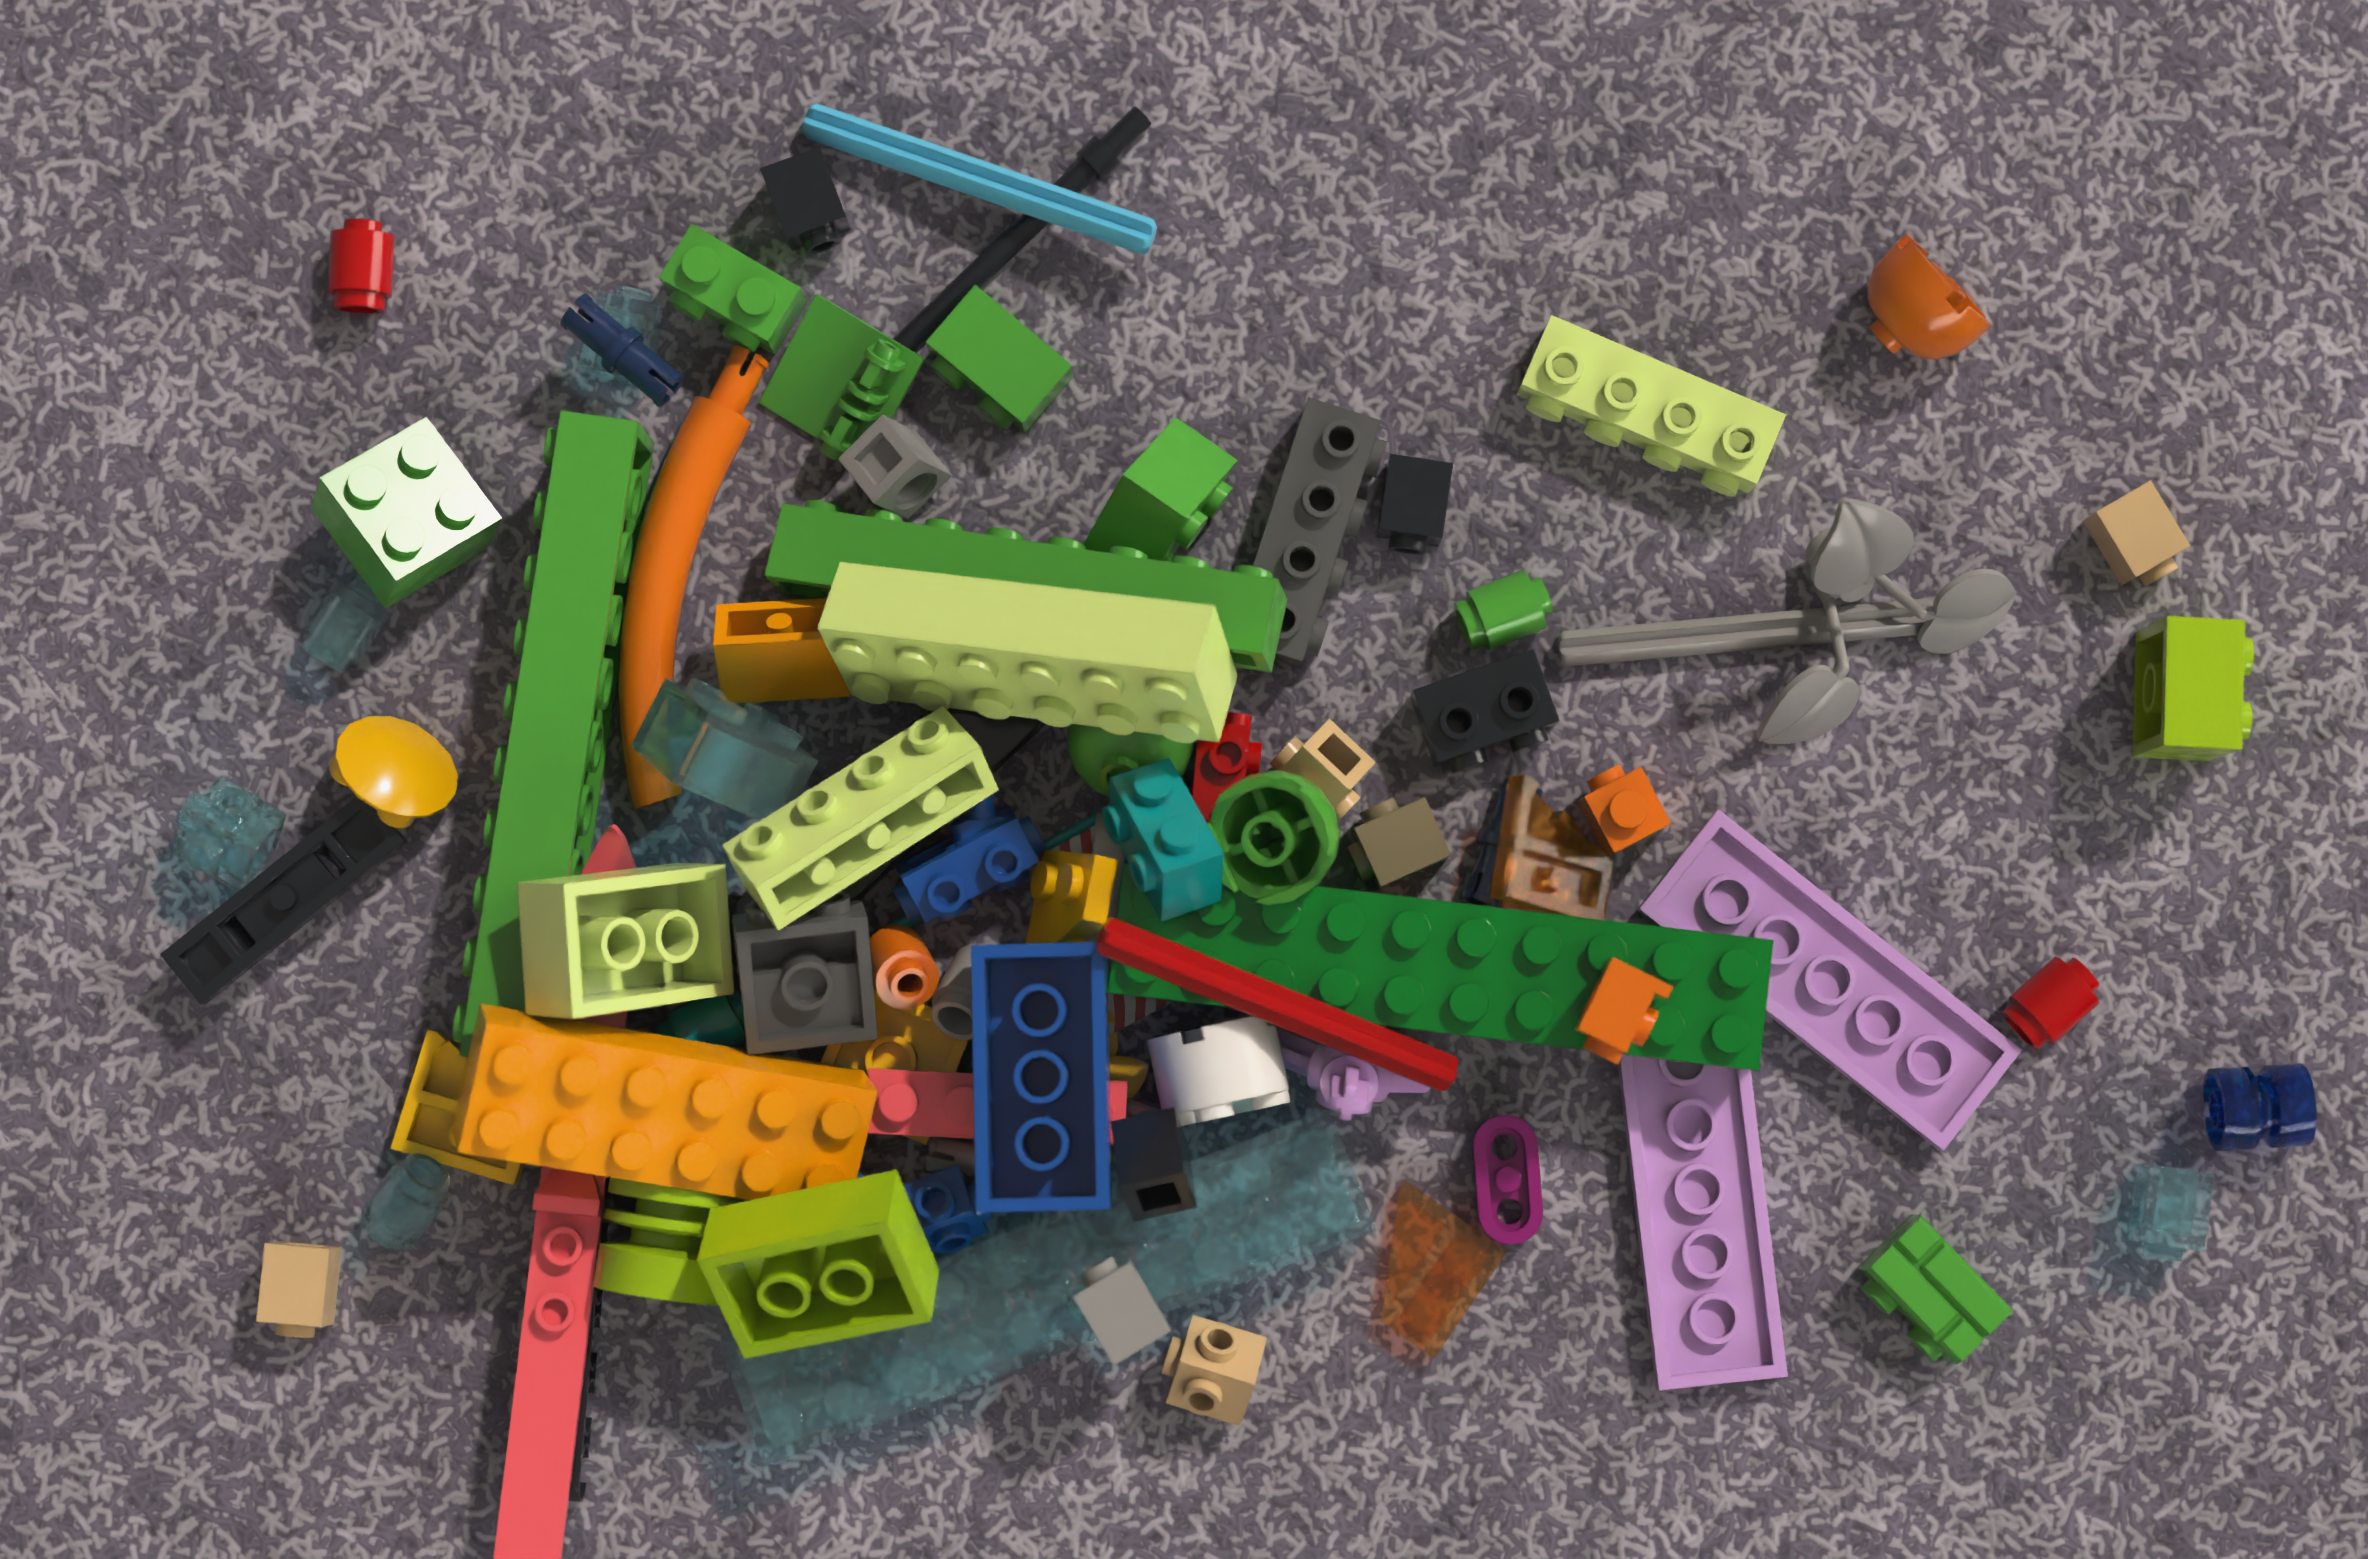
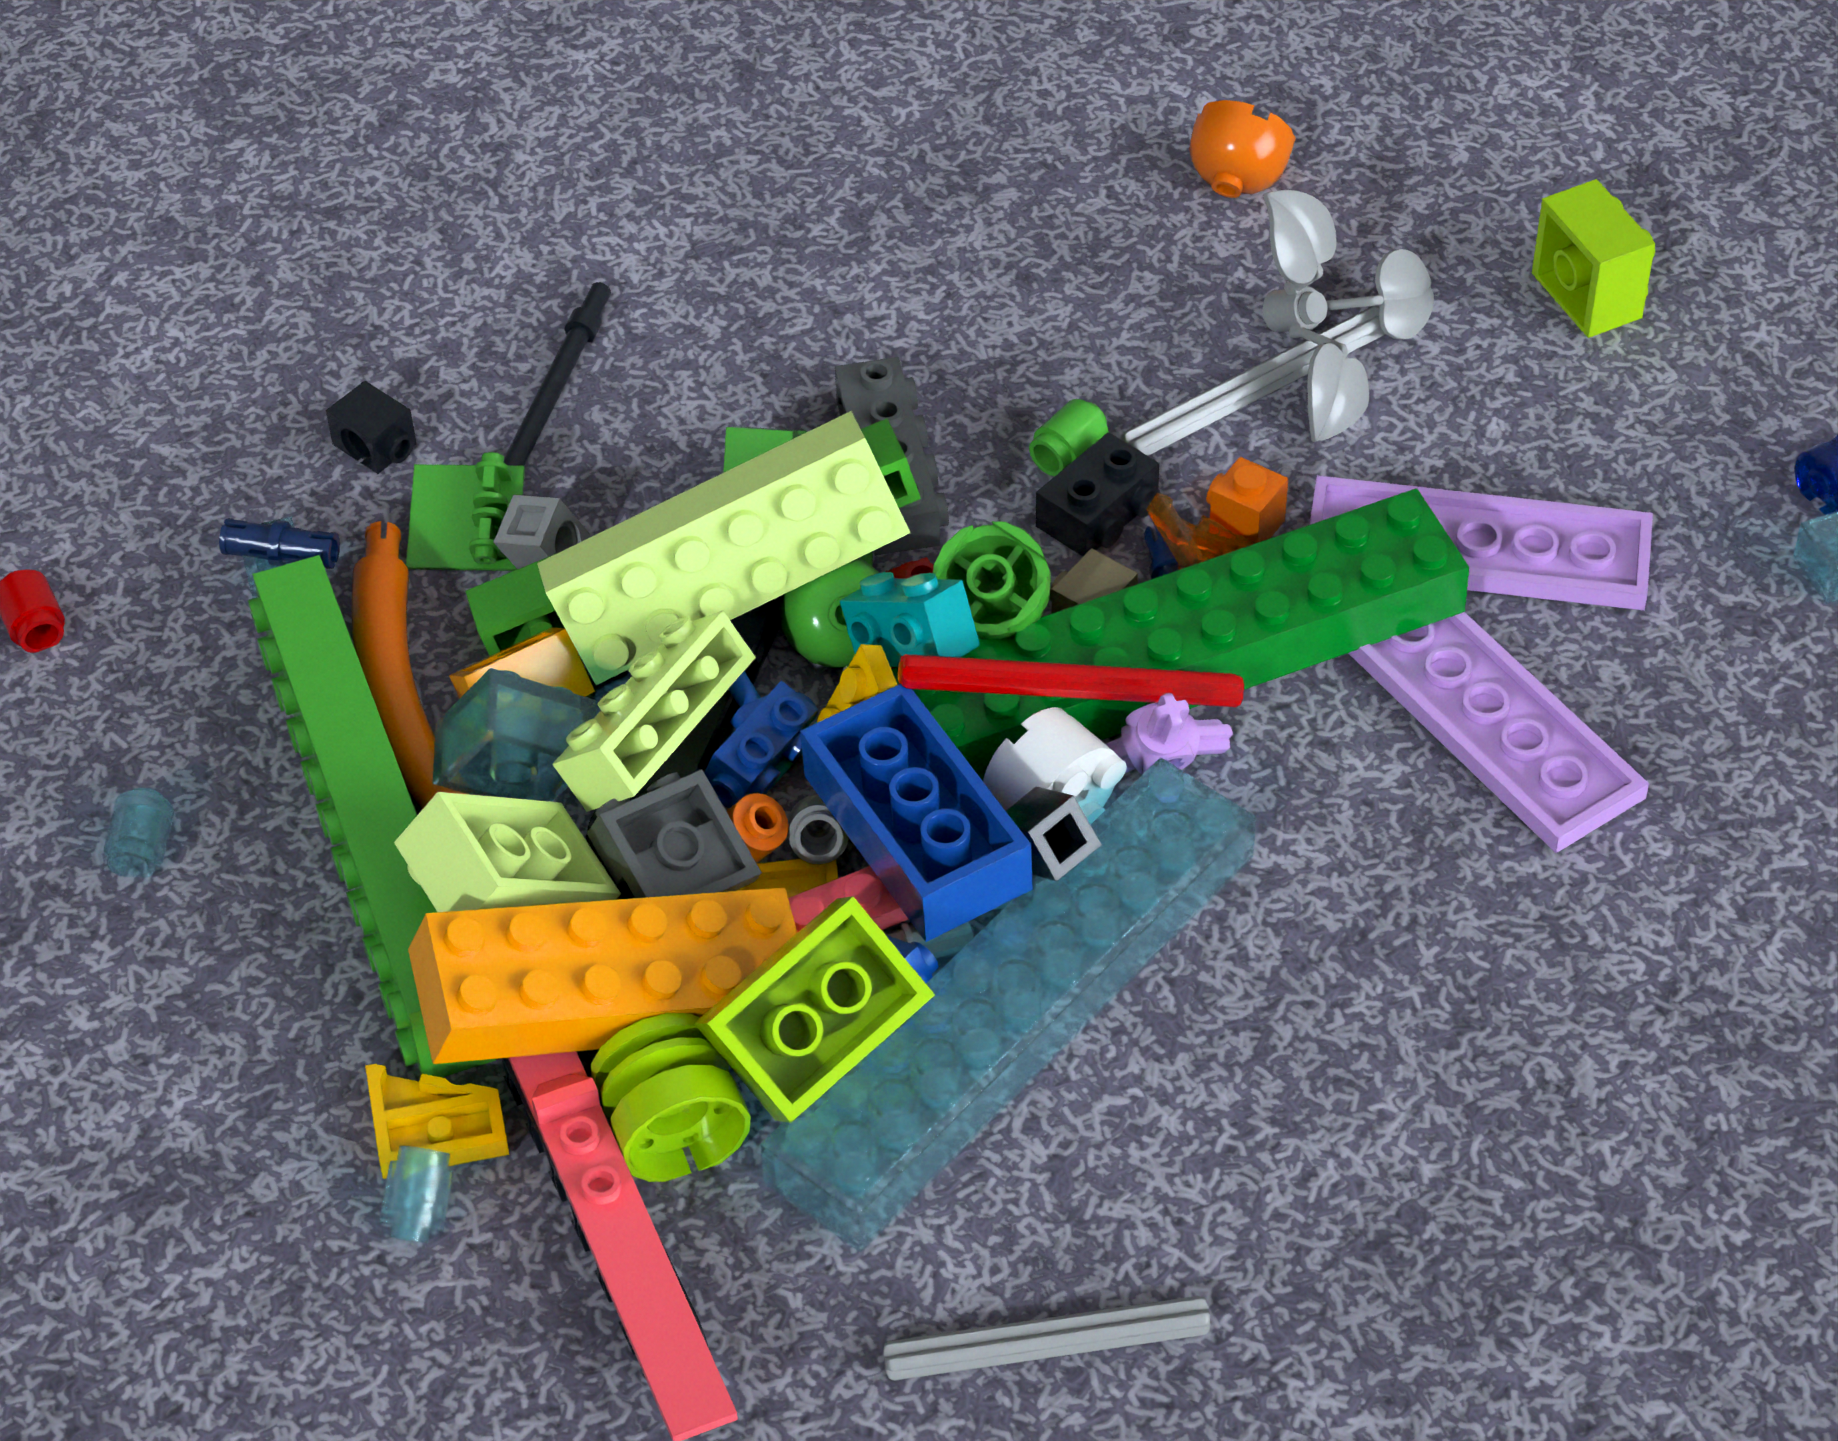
camera: 25 degrees left, 35 degrees down
(228, 833) = (109, 1005): clear light blue brick -> none
(281, 900) = (184, 1026): black hinge -> none
(298, 1287) = (352, 1306): tan brick -> none
(394, 769) = (251, 896): yellow dish -> none
(405, 512) = (153, 724): brick -> none
(733, 290) = (345, 493): bright green brick -> none
(979, 178) = (509, 359): medium azure axle -> none
(998, 361) = (583, 454): bright green brick -> none
(1120, 1309) = (1088, 934): light grey brick -> none
(1213, 1369) = (1213, 992): tan brick -> none
(1414, 503) = (956, 403): black brick -> none
(1433, 1270) = (1321, 856): clear orange wing -> none
(1507, 1179) = (1339, 769): magenta plate -> none
(1620, 1010) = (1335, 552): orange brick -> none
(1650, 406) = (1089, 284): yellowish green brick -> none
(1932, 1291) = (1711, 683): bright green brick -> none
(2052, 1002) = (1651, 479): red brick -> none
(2137, 535) = (1487, 211): tan brick -> none

